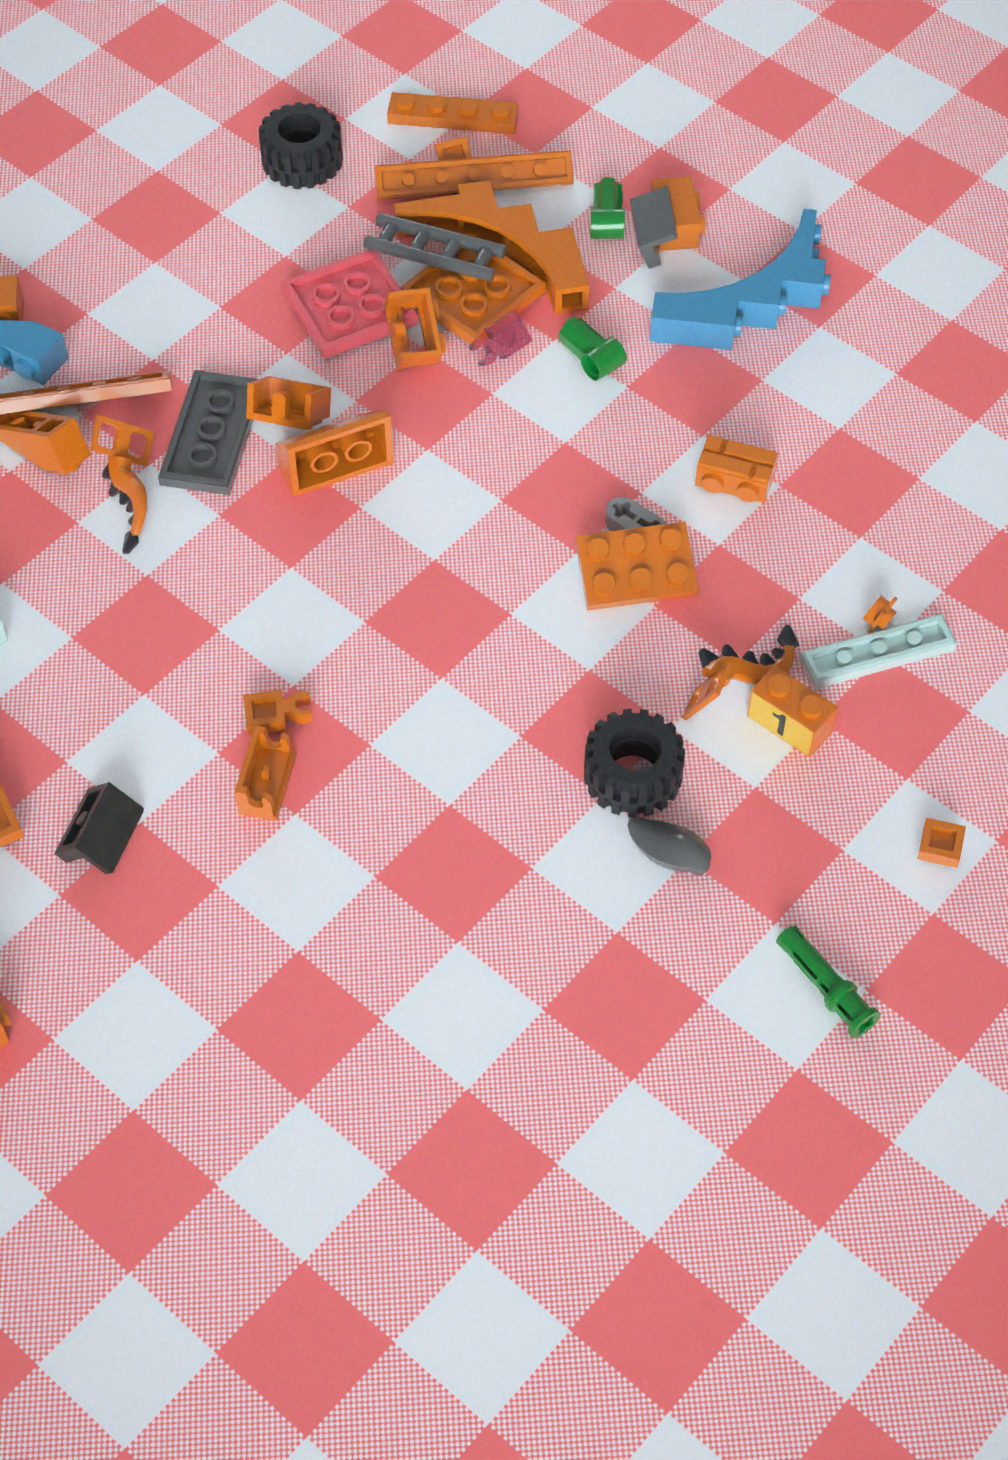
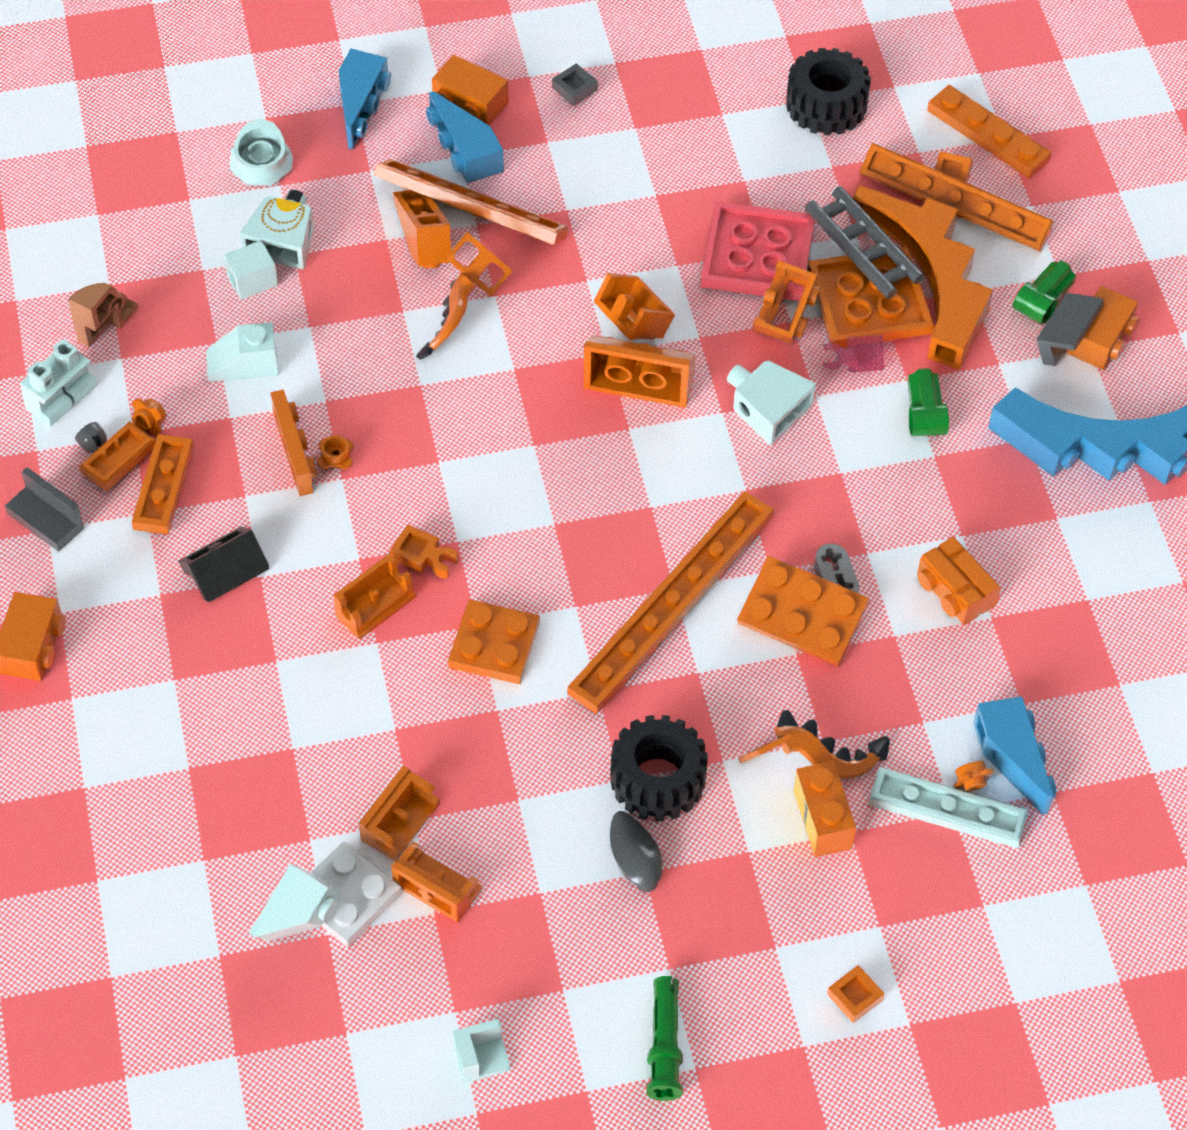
camera: 35 degrees right, 0 degrees up
(74, 251) = (575, 84): none -> dark grey plate
(76, 687) = (294, 442): none -> orange plate
(121, 666) = (335, 444): none -> orange plate
(208, 435) = (556, 298): dark grey tile -> none
(399, 748) = (494, 641): none -> orange plate
(432, 1078) = (296, 905): none -> light aqua slope
(446, 944) = (398, 814): none -> orange hinge
(454, 1043) = (363, 889): none -> white plate
(461, 413) = (770, 398): none -> light aqua torso
(522, 627) = (669, 602): none -> orange plate
(527, 983) = (434, 882): none -> orange hinge
(687, 1098) = (480, 1051): none -> light aqua panel
(885, 569) = (1010, 745): none -> dark azure slope

